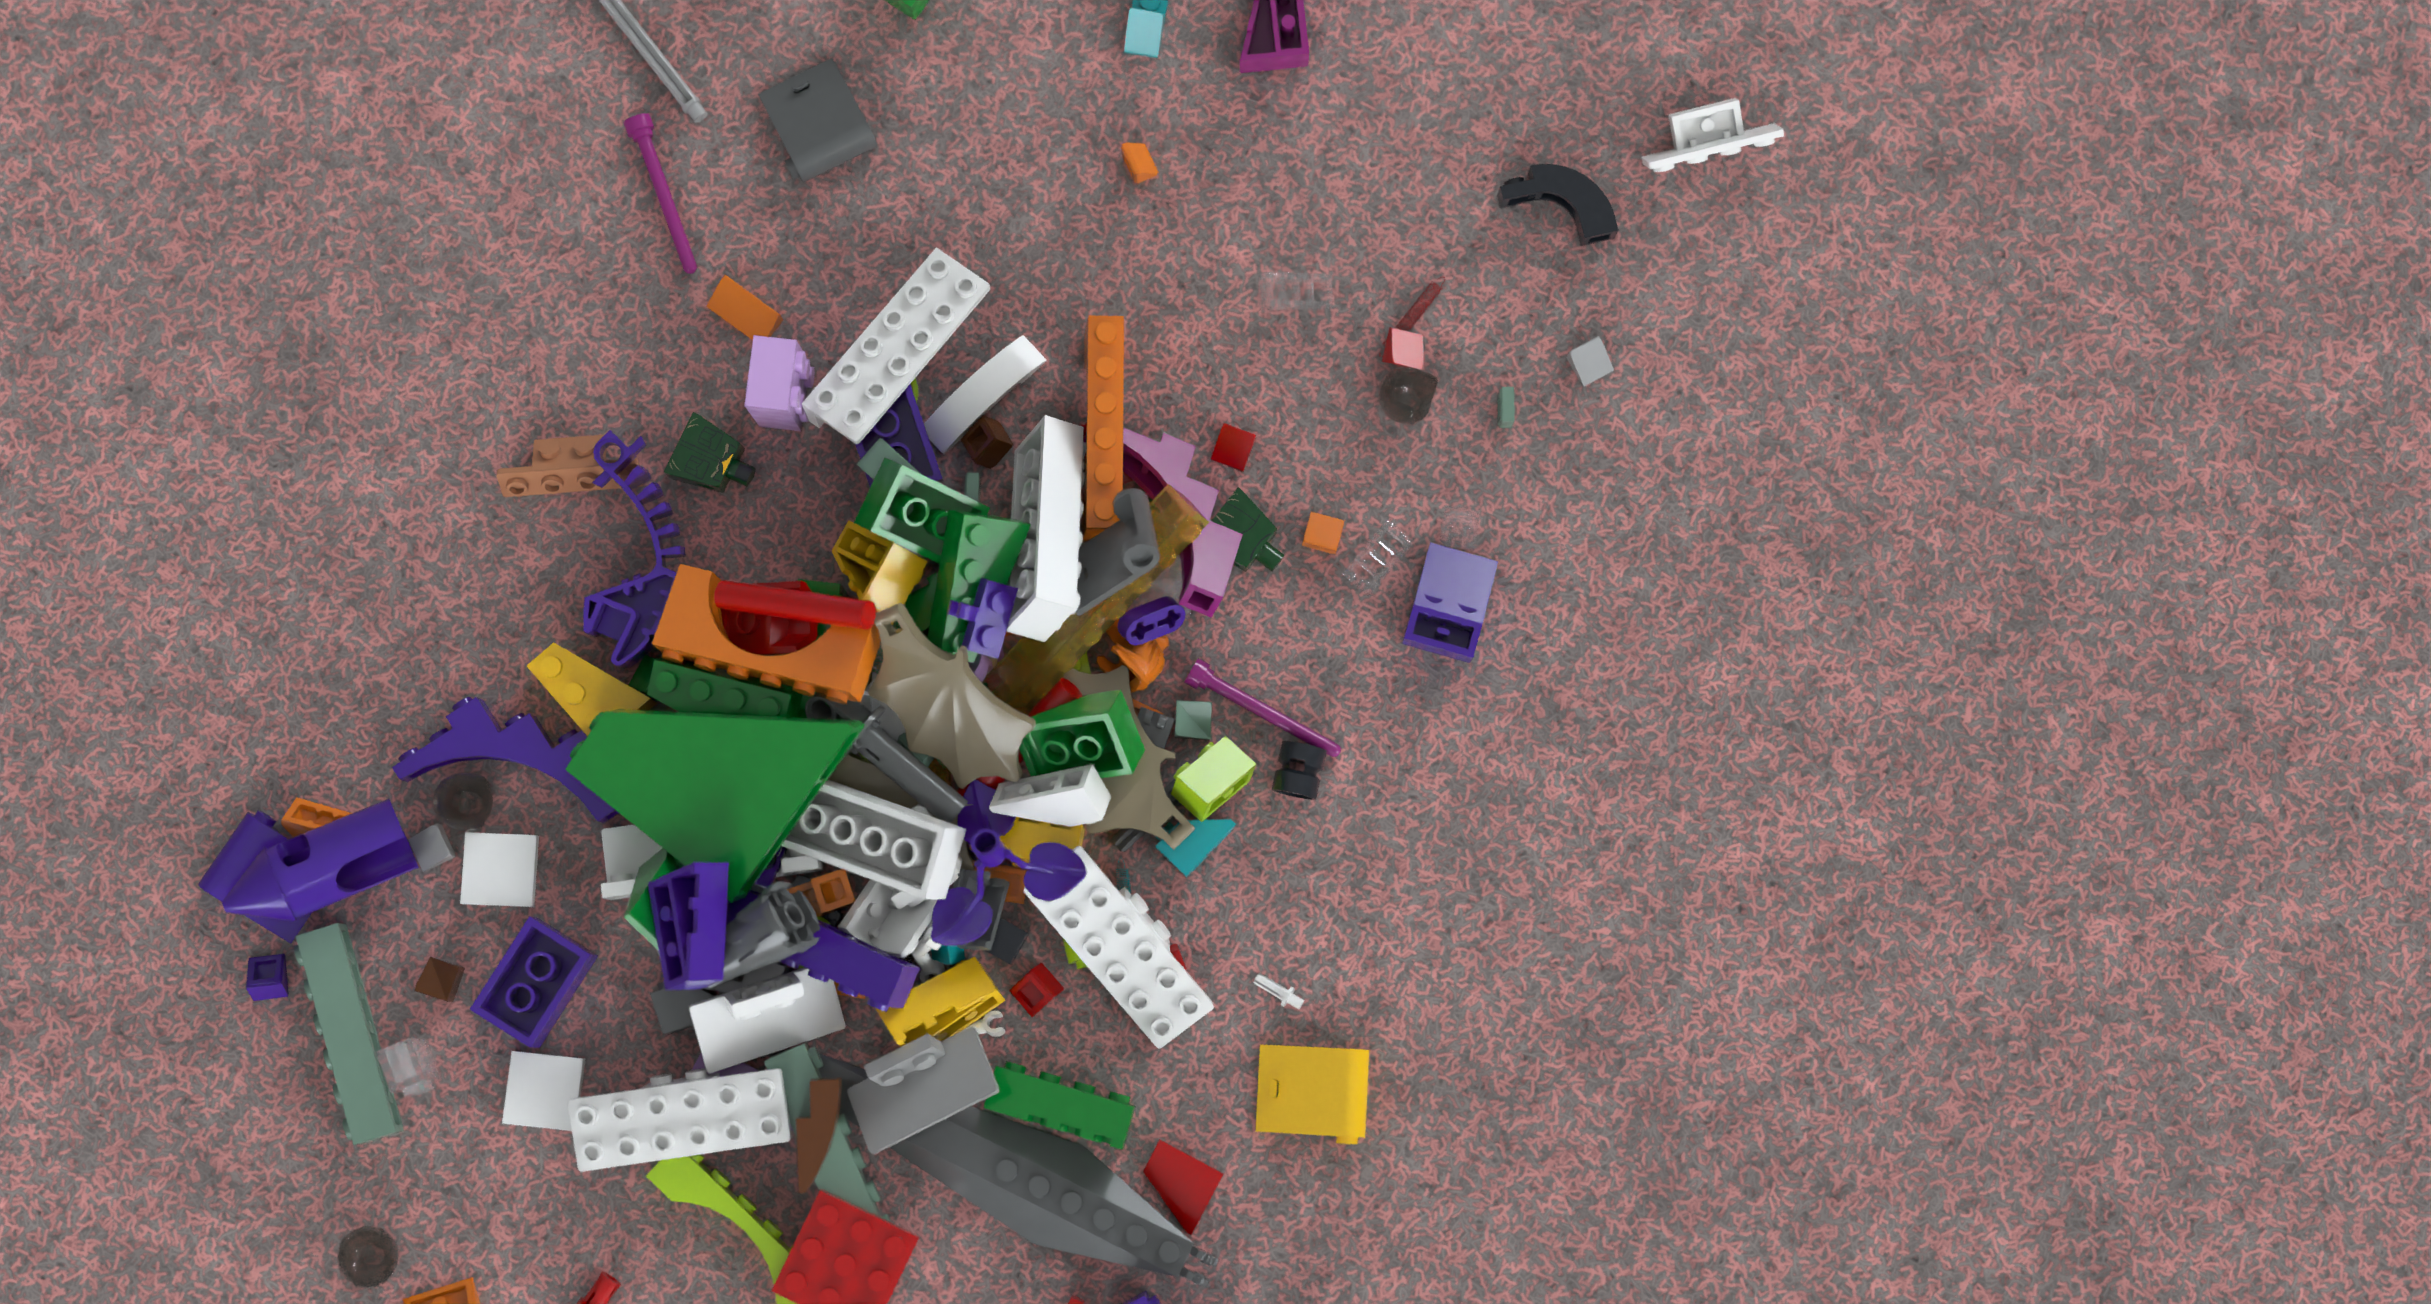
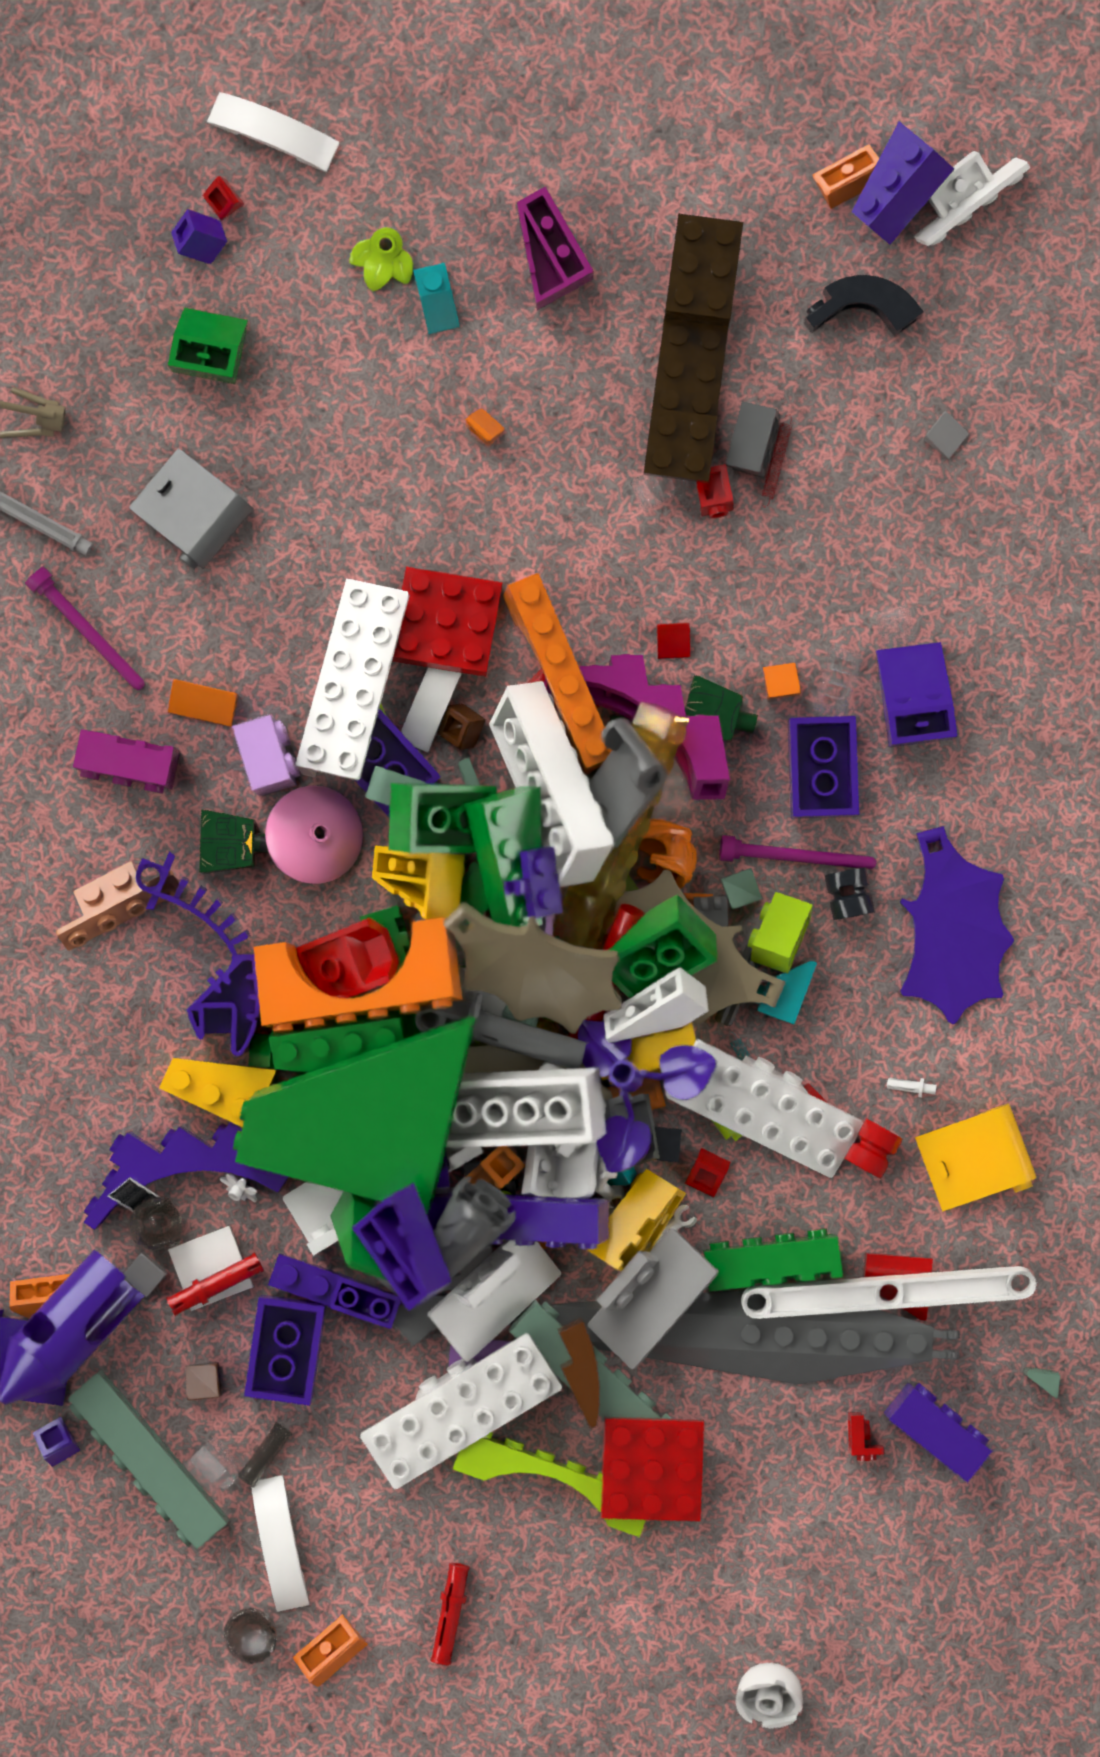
camera: 20 degrees left, 5 degrees up
(440, 1177) = (279, 1543): none -> white slope
(451, 759) = (131, 1194): none -> sticker
(467, 1080) = (265, 1454): none -> clear smoke pin
(493, 886) = (203, 1290): none -> red pin
(541, 1089) = (331, 1435): white tile -> none
(561, 801) = (238, 1188): none -> white plant
(609, 944) = (335, 1290): none -> dark purple slope
(643, 334) = (126, 761): none -> magenta wedge
(770, 492) = (293, 841): none -> bright pink dish
(795, 604) = (371, 941): red piece -> none
(1017, 333) = (448, 621): none -> red plate
(1151, 620) = (673, 822): dark purple beam -> none
(1189, 1195) = (913, 1291): none -> white beam
(1212, 1036) = (873, 1148): none -> red wheel
(1326, 633) = (823, 767): none -> dark purple brick
(1336, 318) = (716, 495): none -> red bracket
(1376, 171) = (693, 348): none -> dark brown bracket
(1389, 855) = (955, 931): none -> dark purple animal
(1397, 284) = (753, 439): none -> dark grey hinge
(1404, 349) = (783, 493): slope -> none
(1407, 394) = (803, 532): clear smoke hair -> none
(1505, 407) = (891, 506): sand green tile -> none
(1603, 73) = (847, 176): none -> orange slope
(1648, 98) = (900, 183): none -> dark purple wedge

